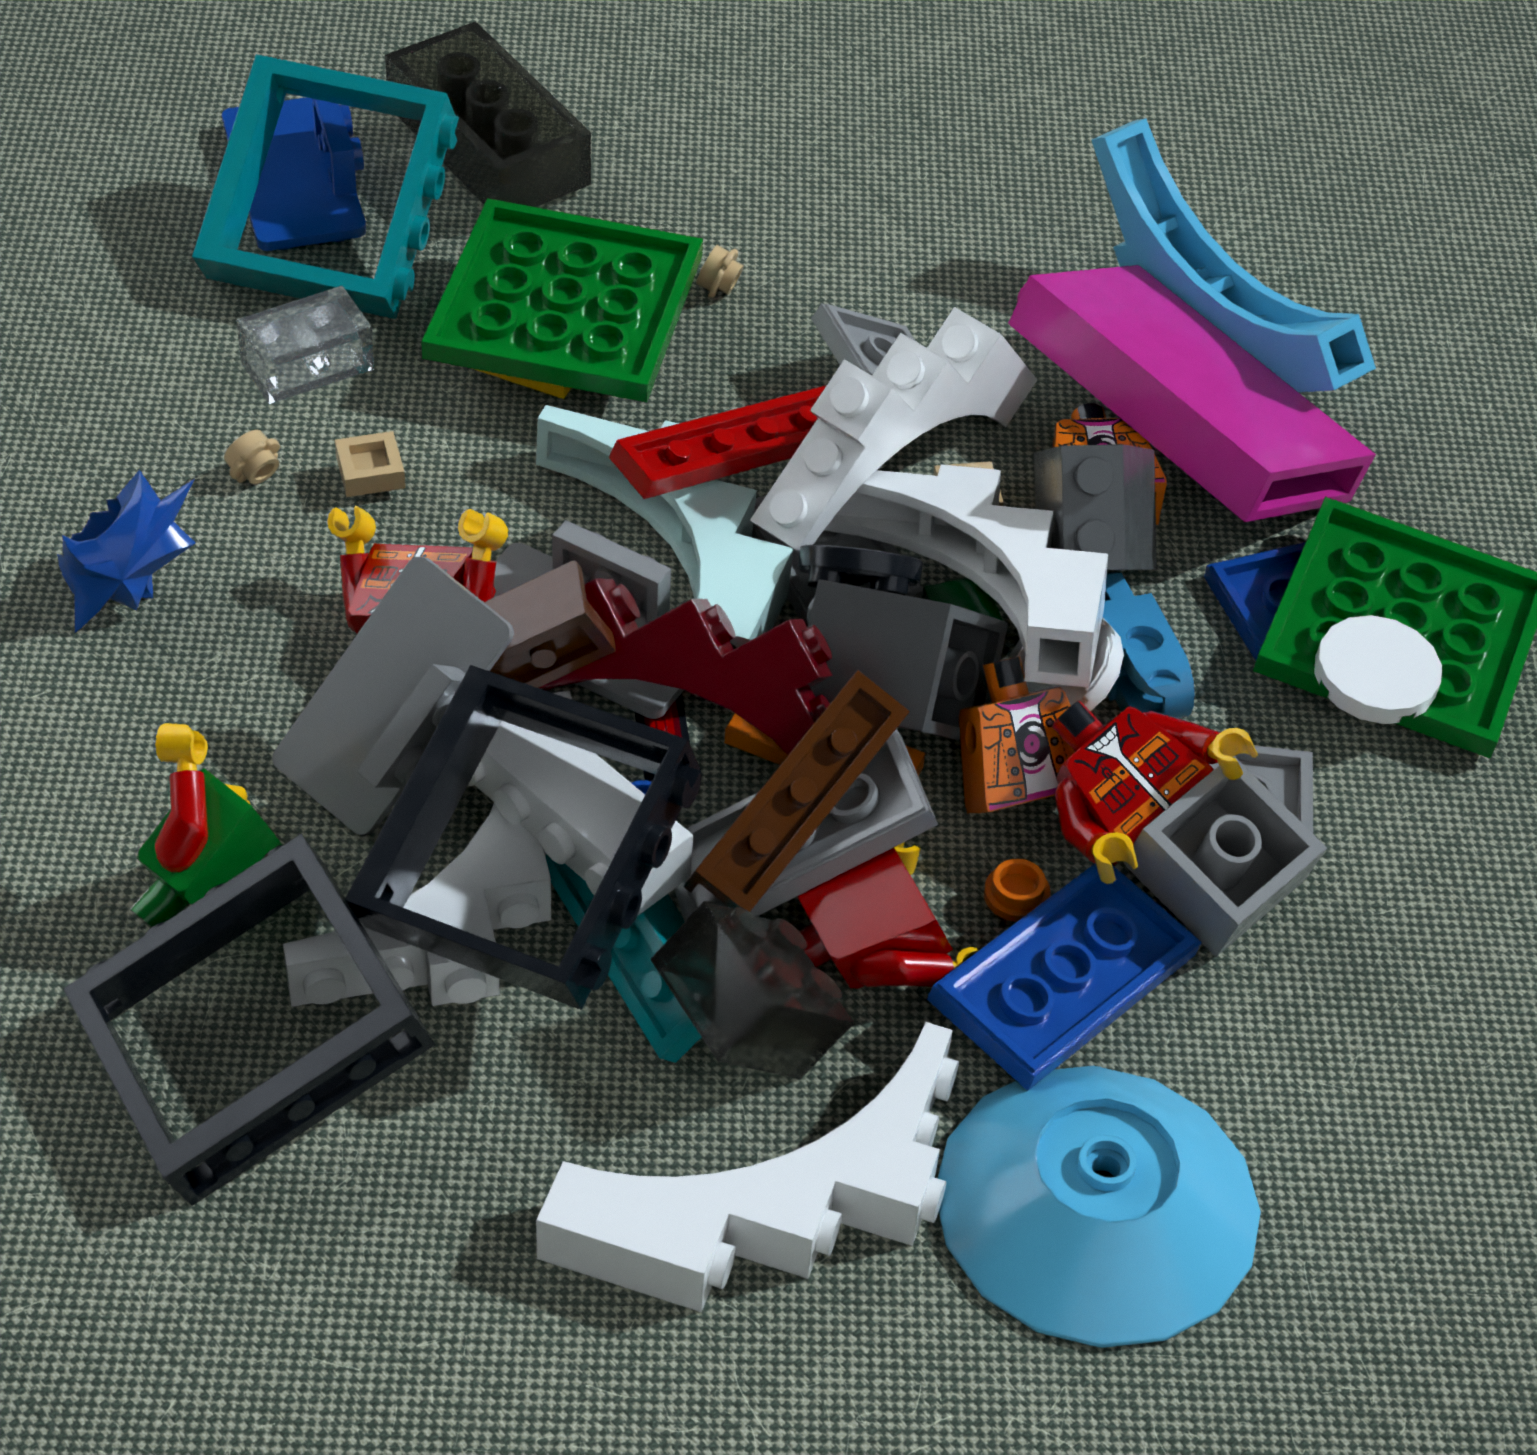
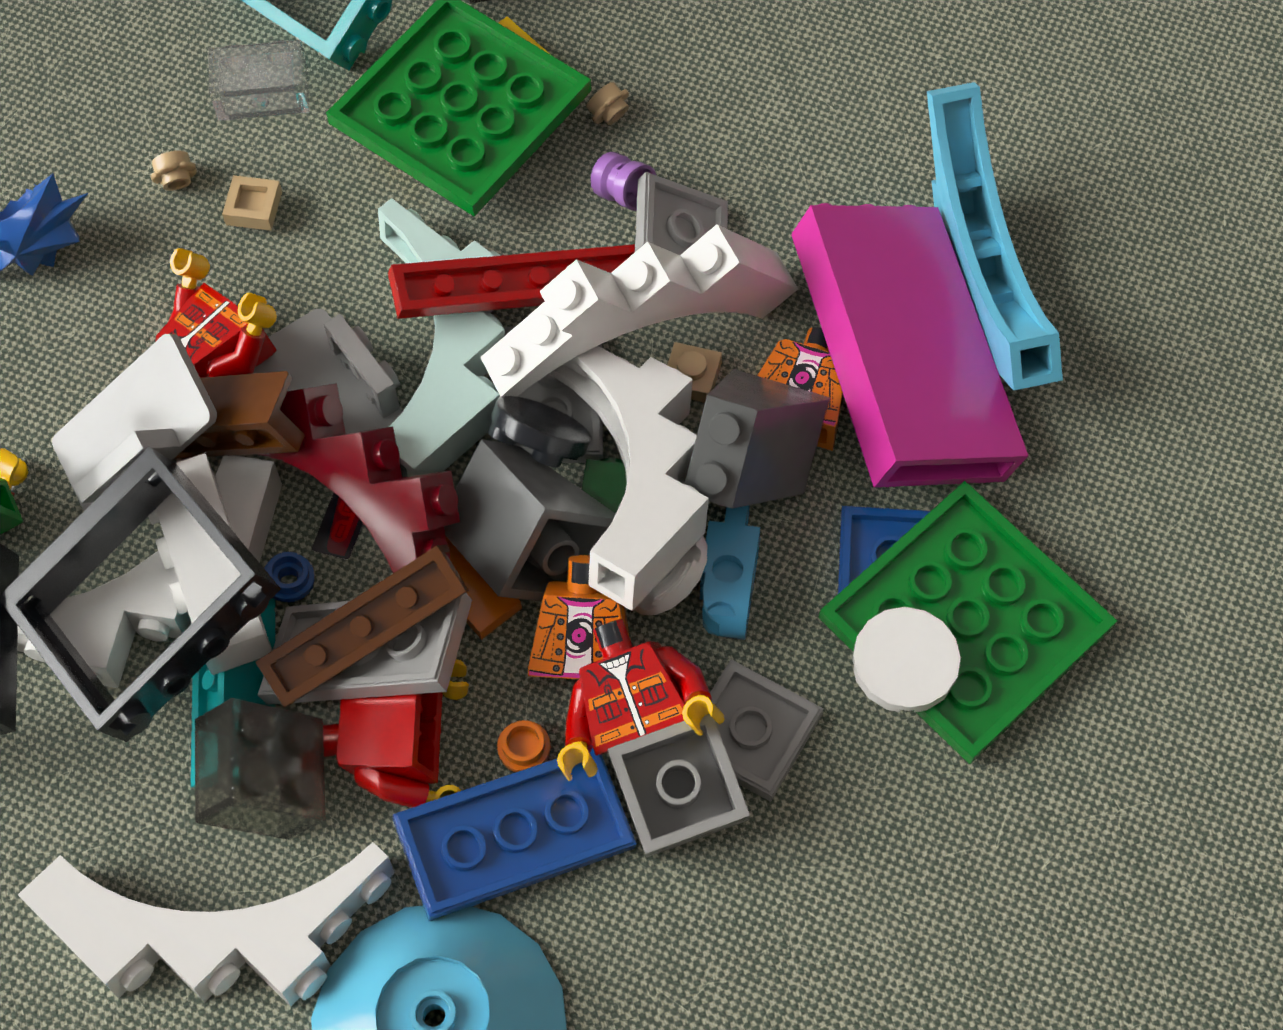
camera: 30 degrees right, 15 degrees up
(786, 331) = (617, 178): none -> medium lavender wheel

